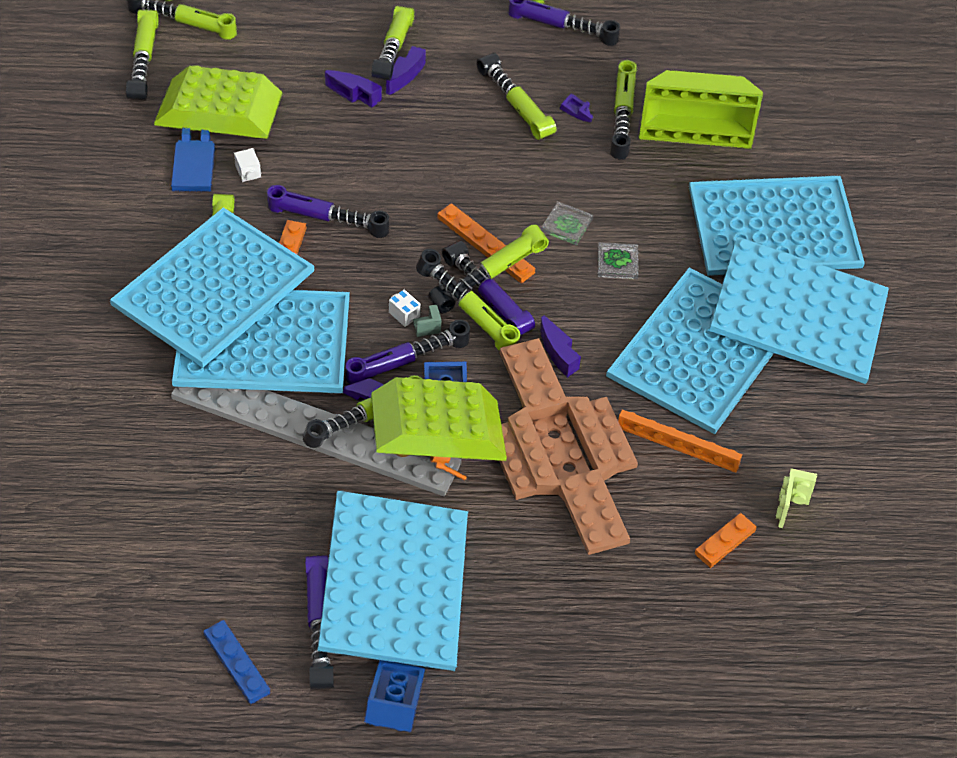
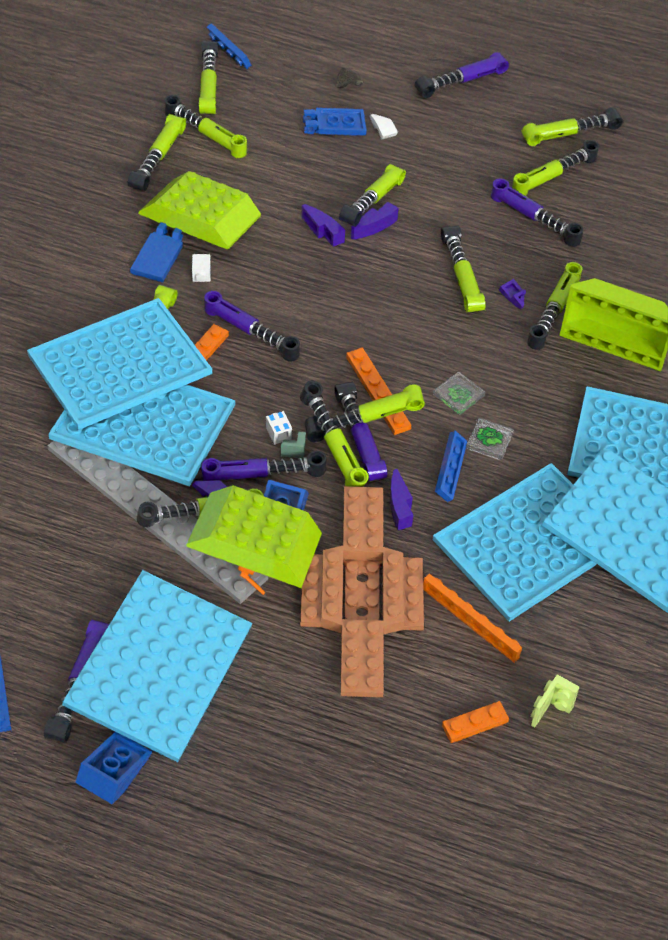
camera: 20 degrees right, 0 degrees up
(593, 298) = (451, 466): none -> blue plate

